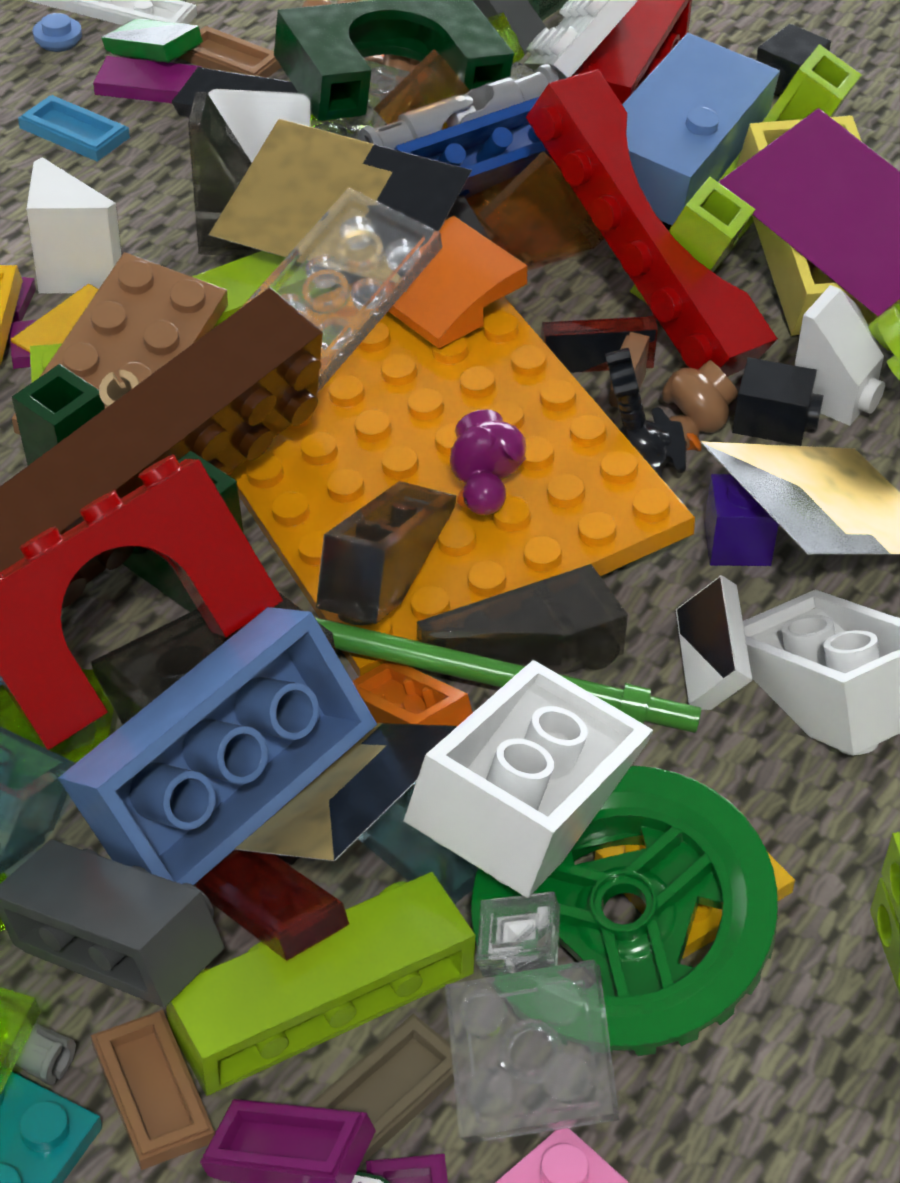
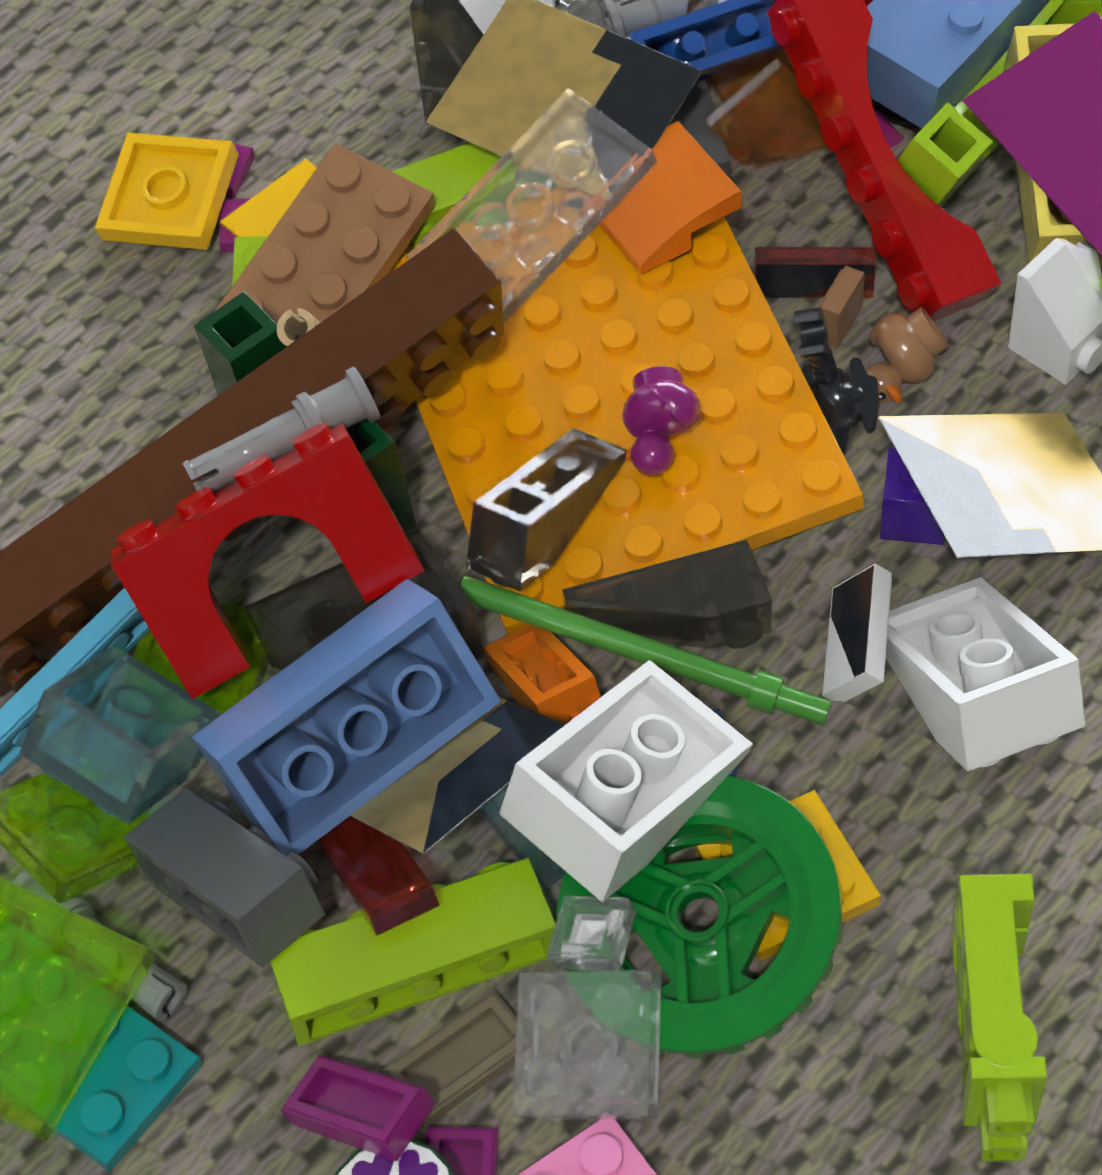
camera: 15 degrees right, 10 degrees up
(70, 231) = (287, 104): white slope -> none
(152, 1089) = (250, 1035): medium nougat tile -> none
(186, 439) = (341, 402): none -> light grey pin
(777, 402) = (987, 356): black brick -> none

